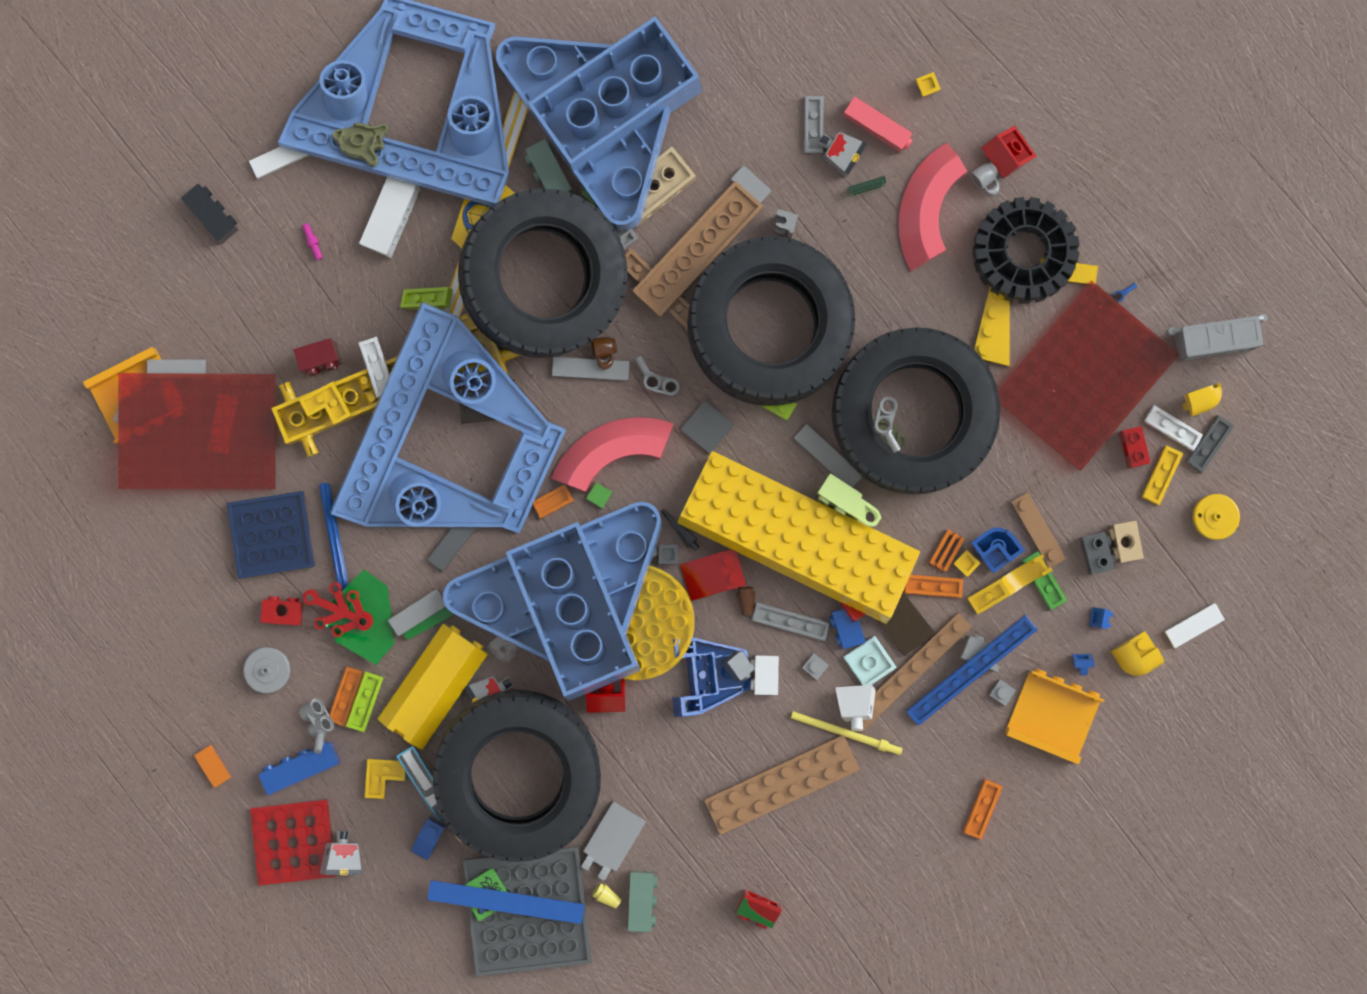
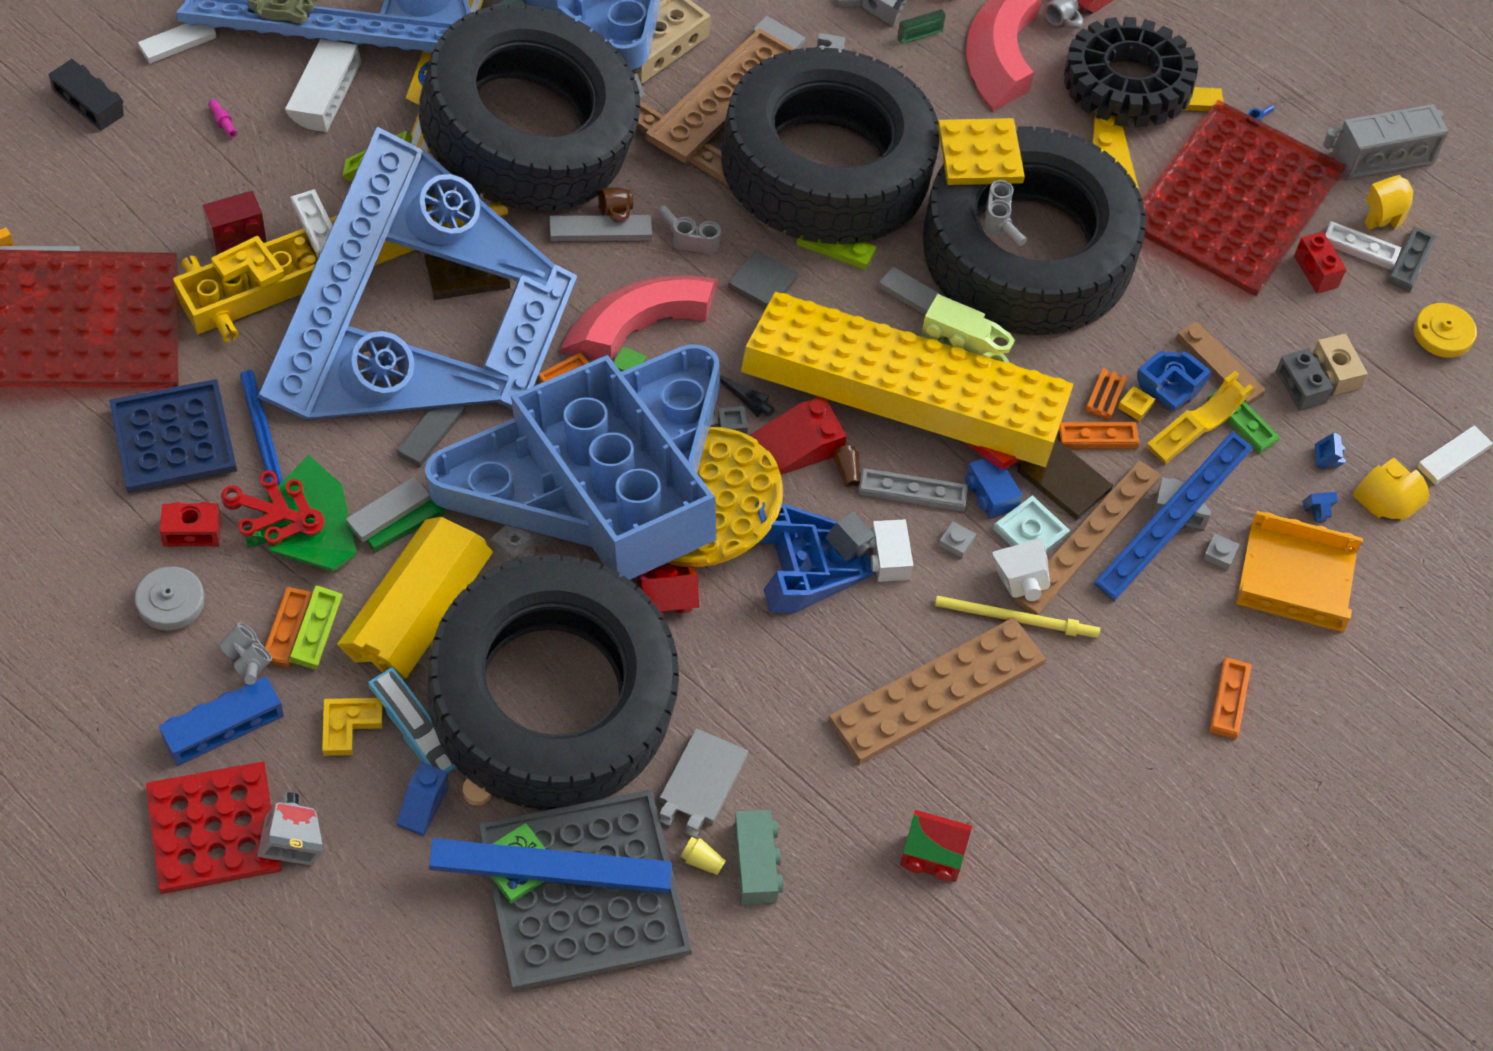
camera: 10 degrees left, 30 degrees down
(212, 766) = (87, 733): orange tile -> none
(882, 356) = (980, 151): none -> yellow plate
(1161, 475) = (1362, 295): yellow tile -> none

